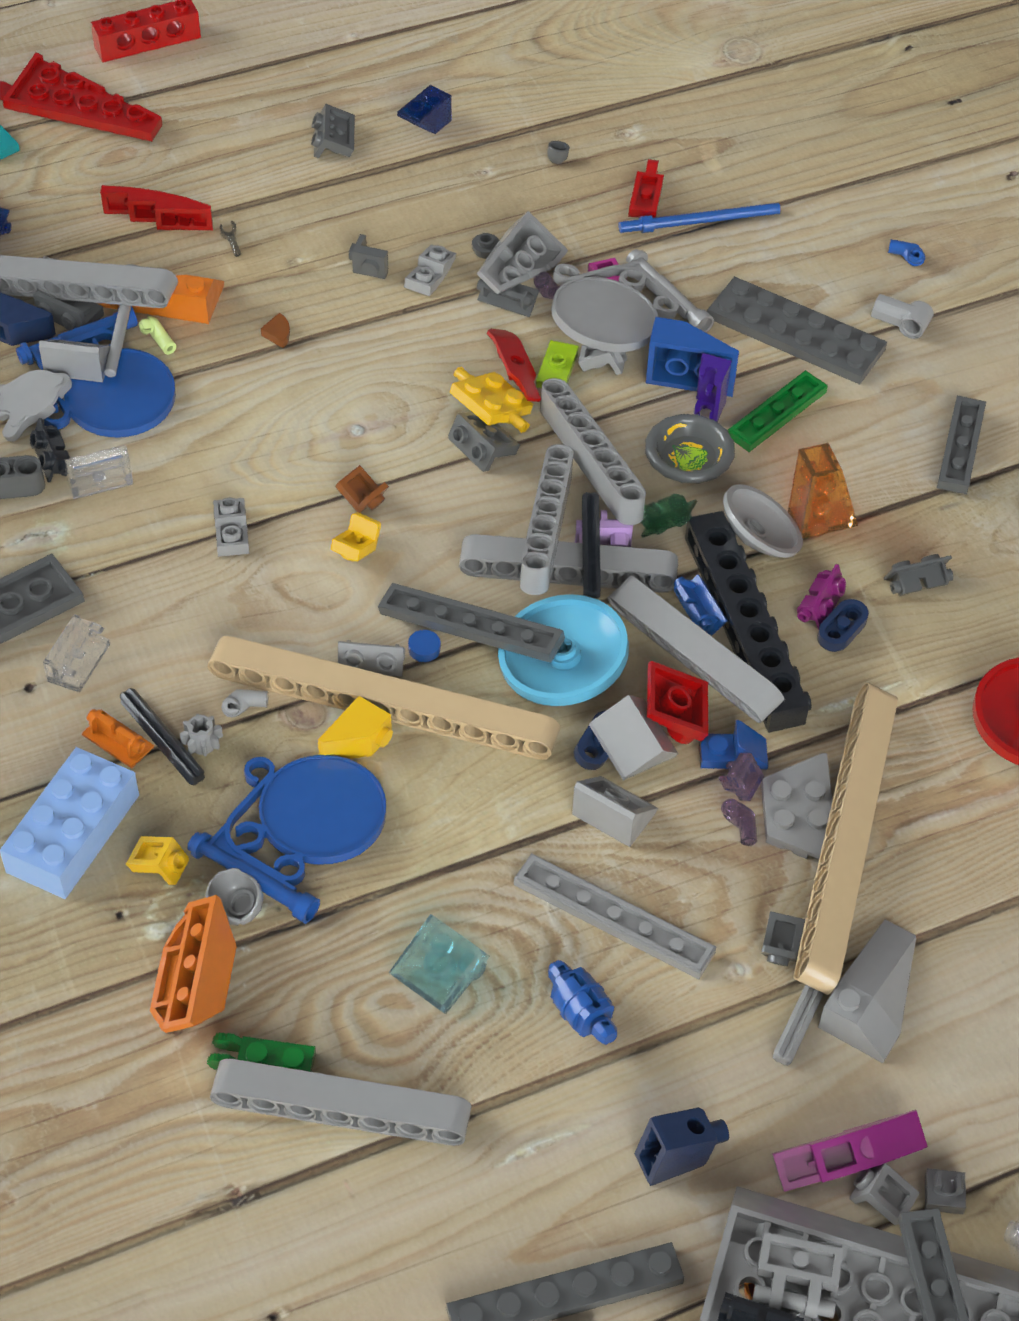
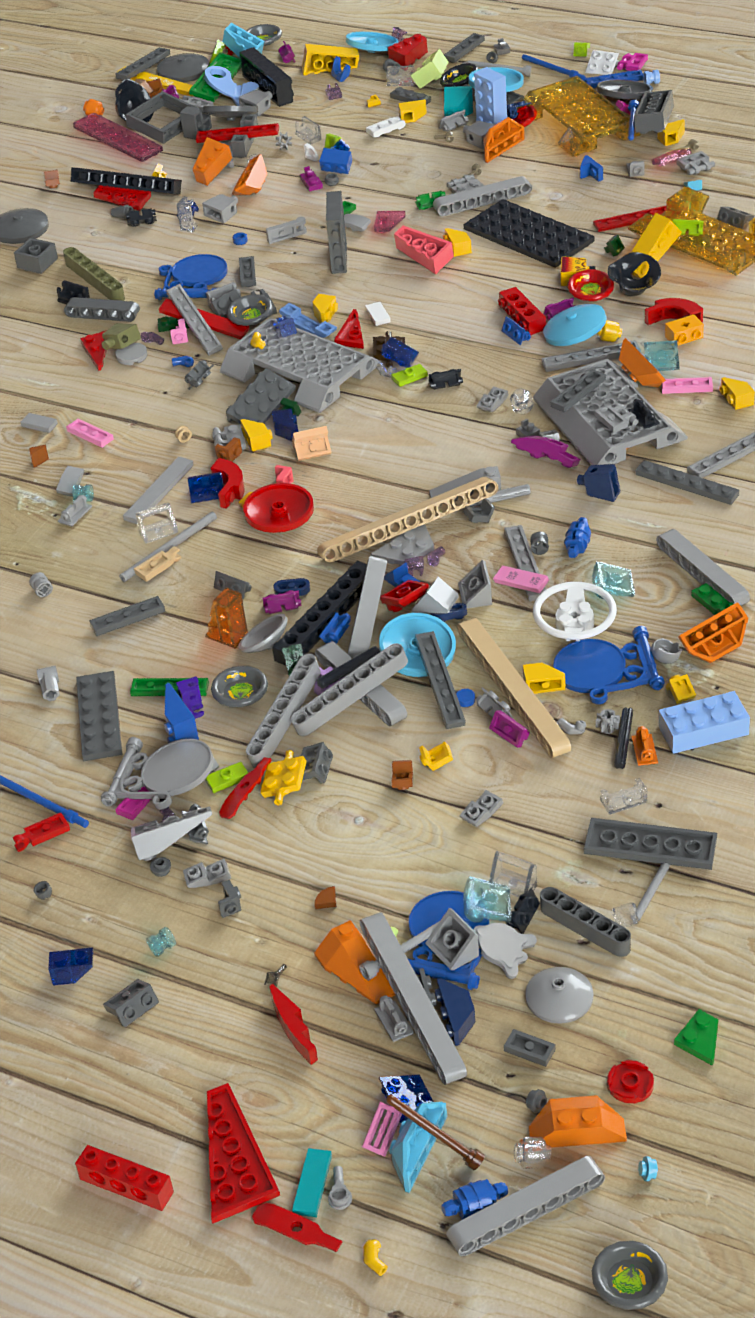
camera: 125 degrees left, 10 degrees down
(88, 414) = (486, 900): none -> clear light blue slope
(324, 634) = (509, 729): none -> magenta plate
(378, 186) = (161, 941): none -> clear light blue wheel
(411, 843) = (574, 616): none -> white piece
(570, 863) = (521, 579): none -> bright pink tile
(627, 953) = (541, 547): none -> dark grey wheel

